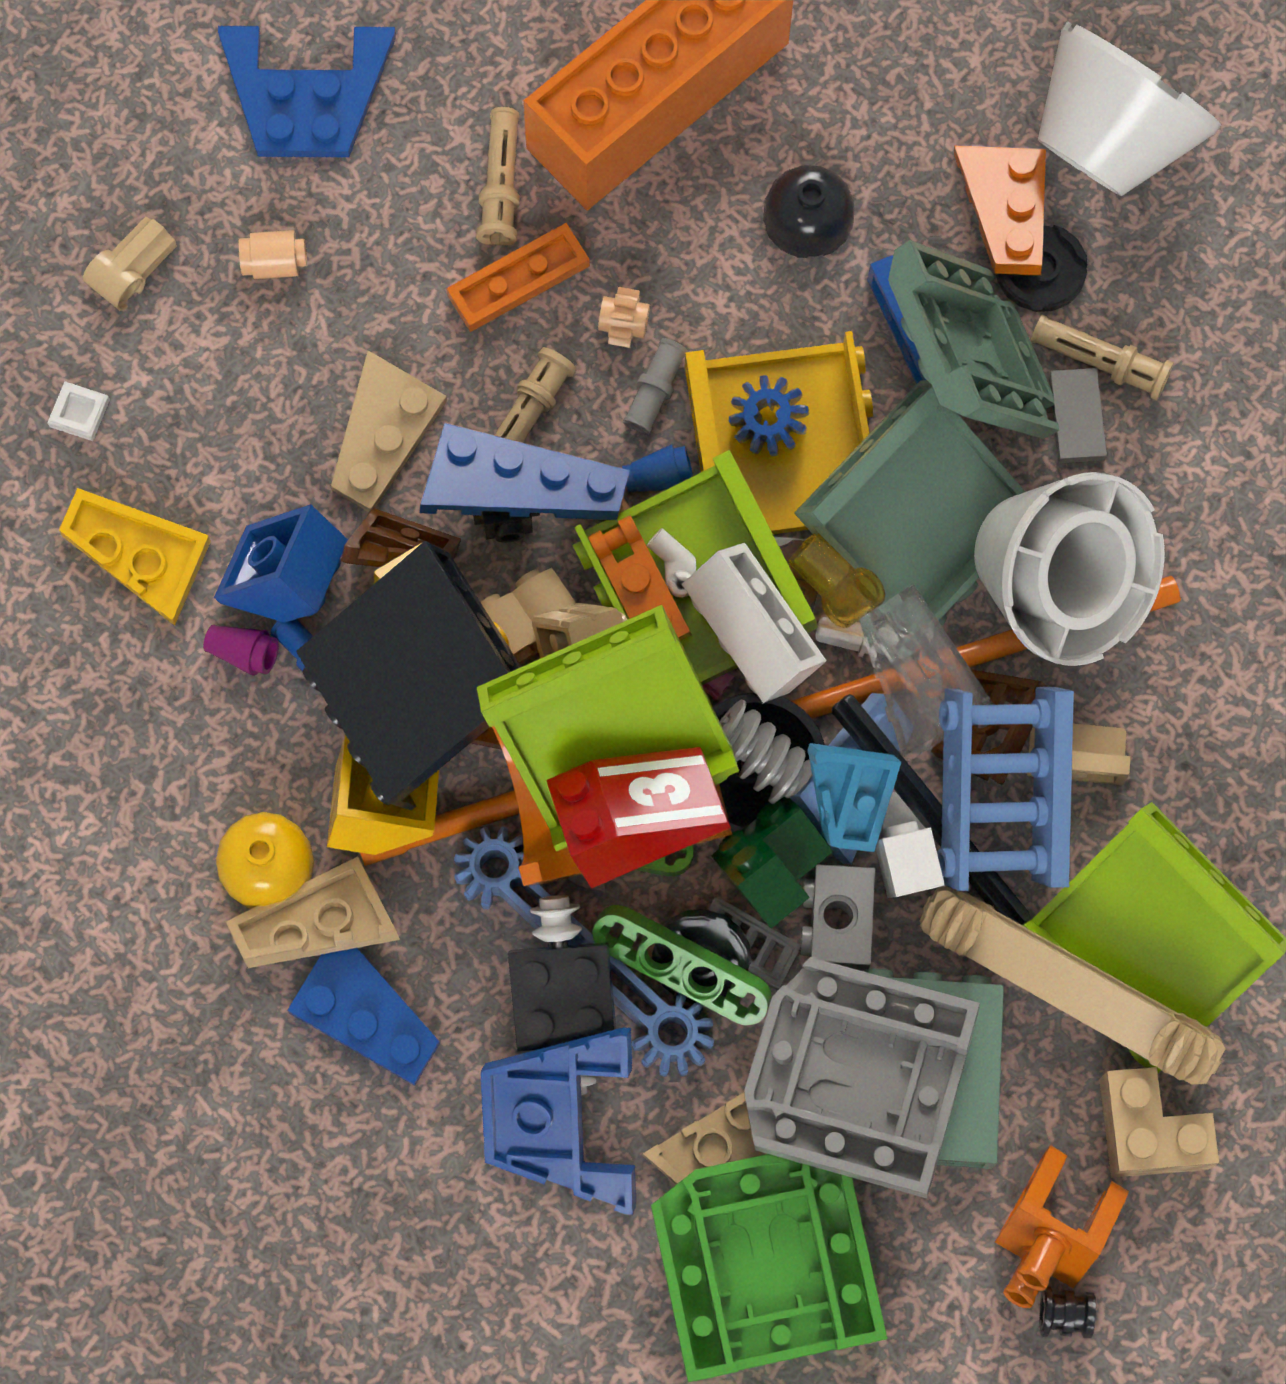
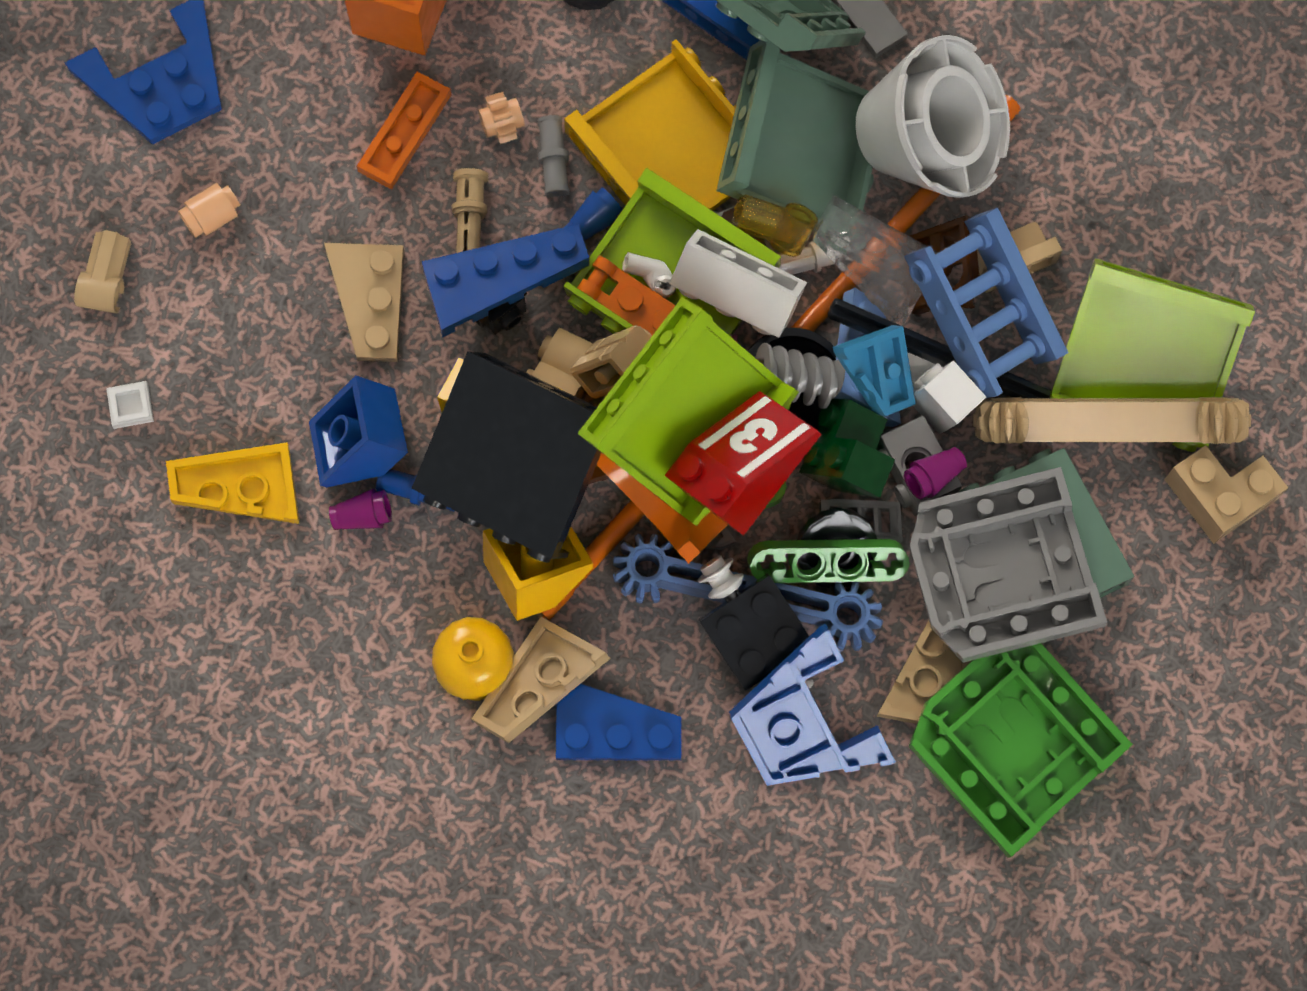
camera: 30 degrees left, 0 degrees up
(387, 536) = (426, 372): reddish brown wing -> none
(499, 195) = (354, 78): tan pin -> none
(752, 417) = (666, 129): blue gear -> none
(846, 934) = (933, 473): none -> magenta cone
(1049, 1245) = (1201, 614): orange piece -> none
(1067, 1313) = (1242, 655): black bush -> none

